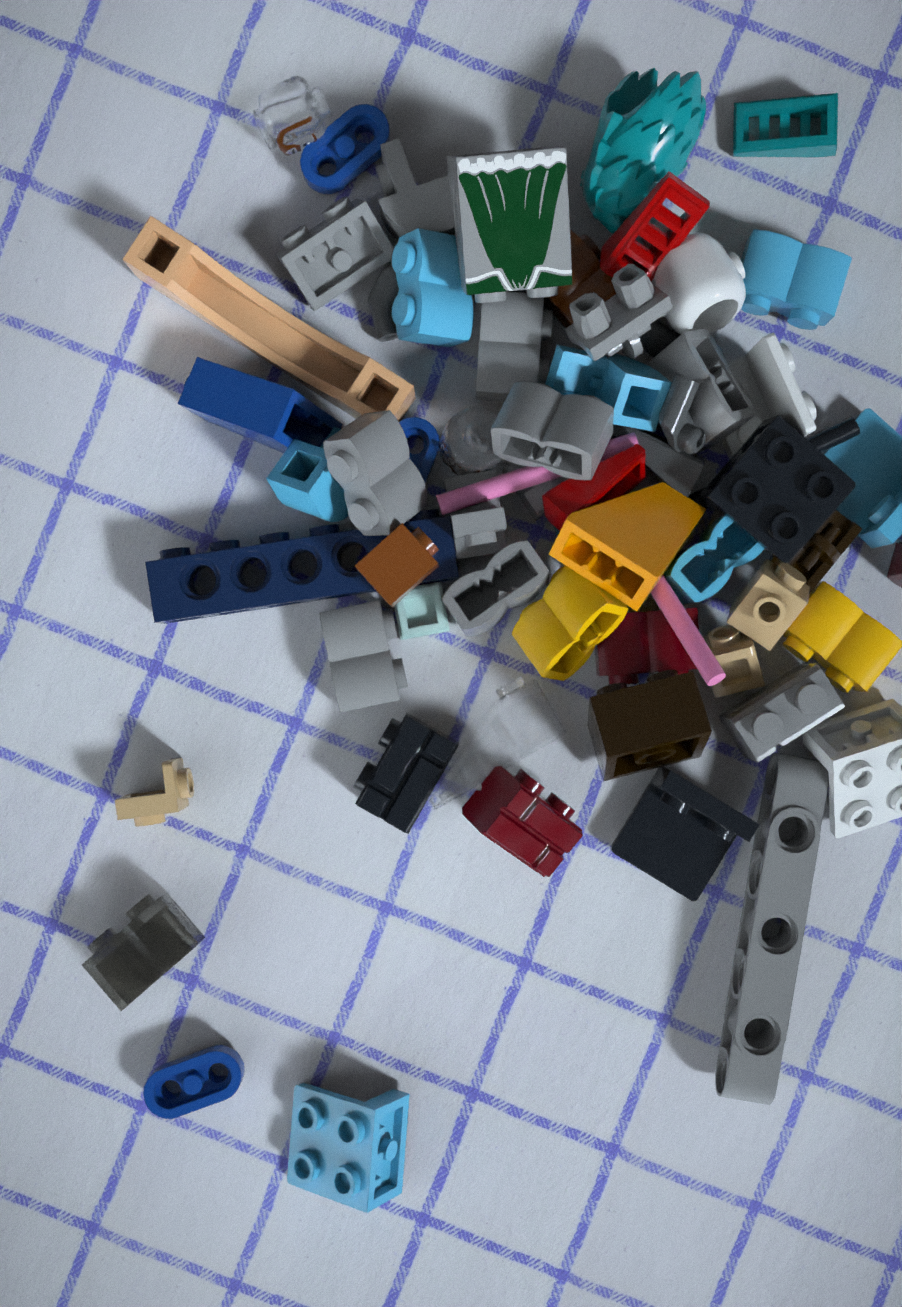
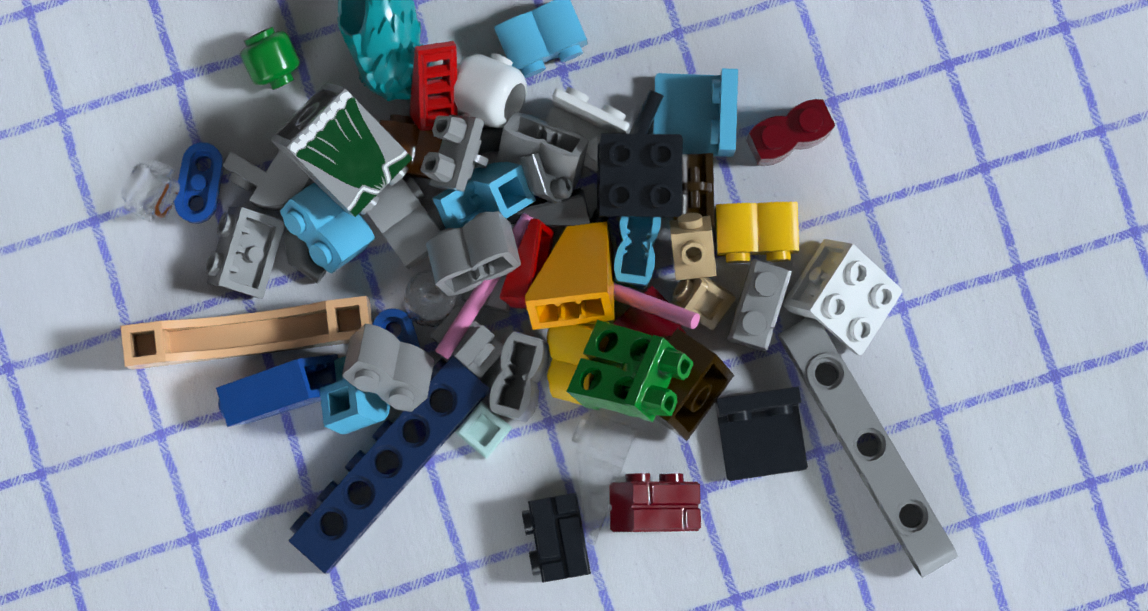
camera: 35 degrees left, 5 degrees down
(362, 656) = (470, 488): light grey brick -> none
(399, 563) = (447, 410): dark orange brick -> none
(512, 82) = (270, 58): none -> green head
(611, 678) = (630, 373): none -> green hips

